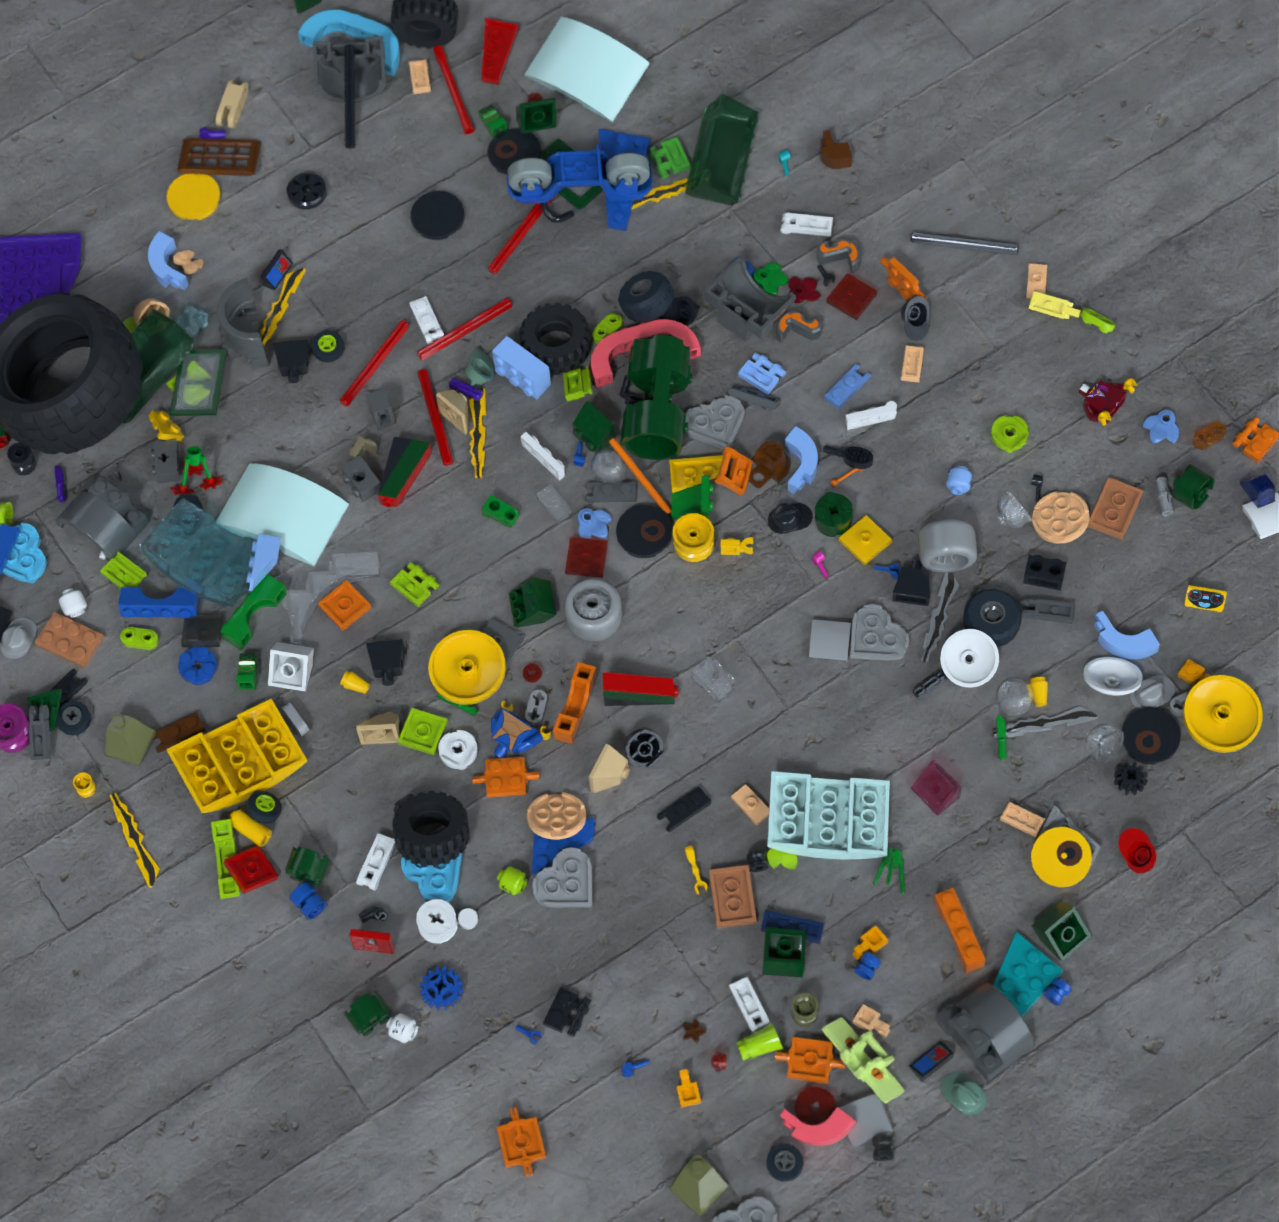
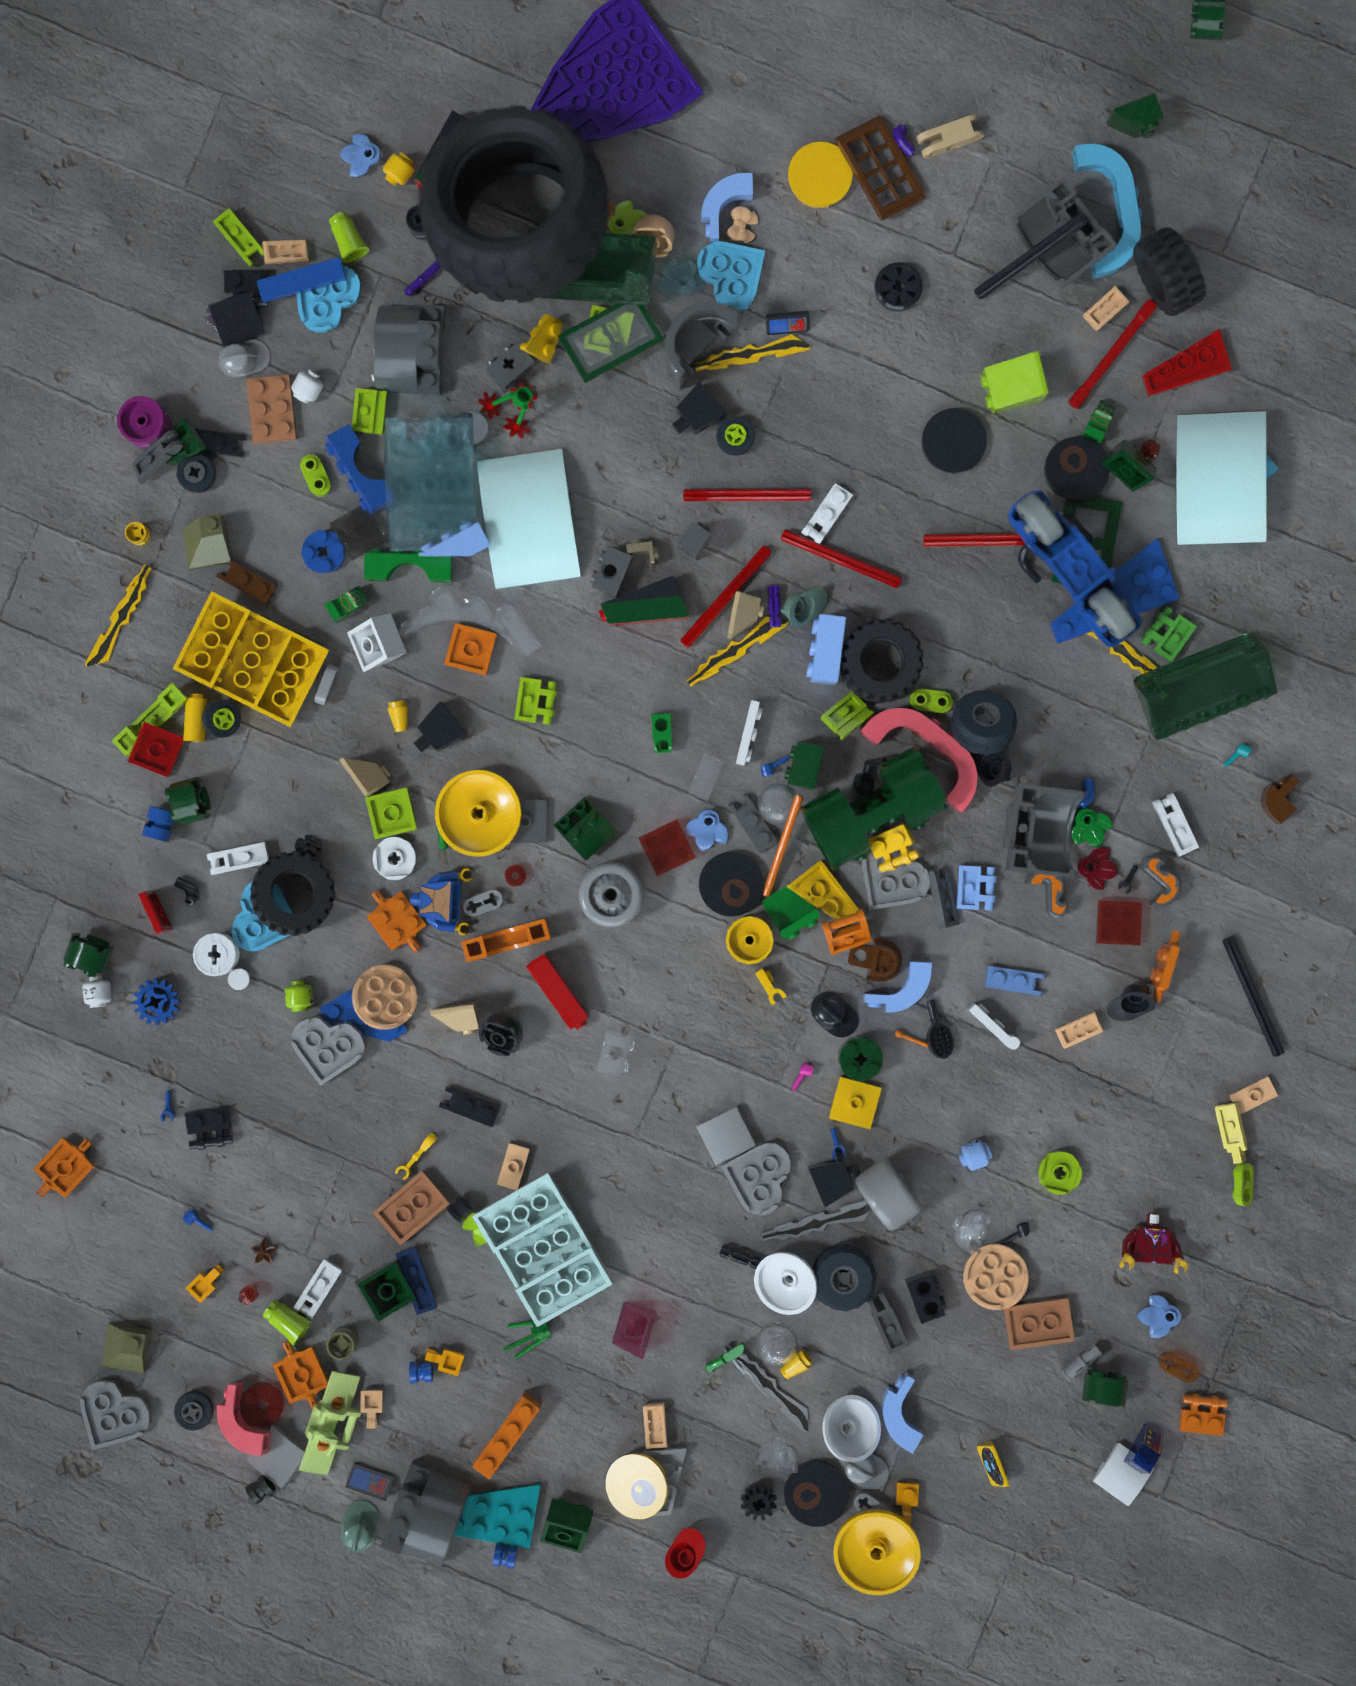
camera: 50 degrees right, 25 degrees up
(209, 283) = (732, 271): none -> medium azure plate
(427, 152) = (1014, 383): none -> lime slope
(688, 398) = (890, 841): none -> yellow plate

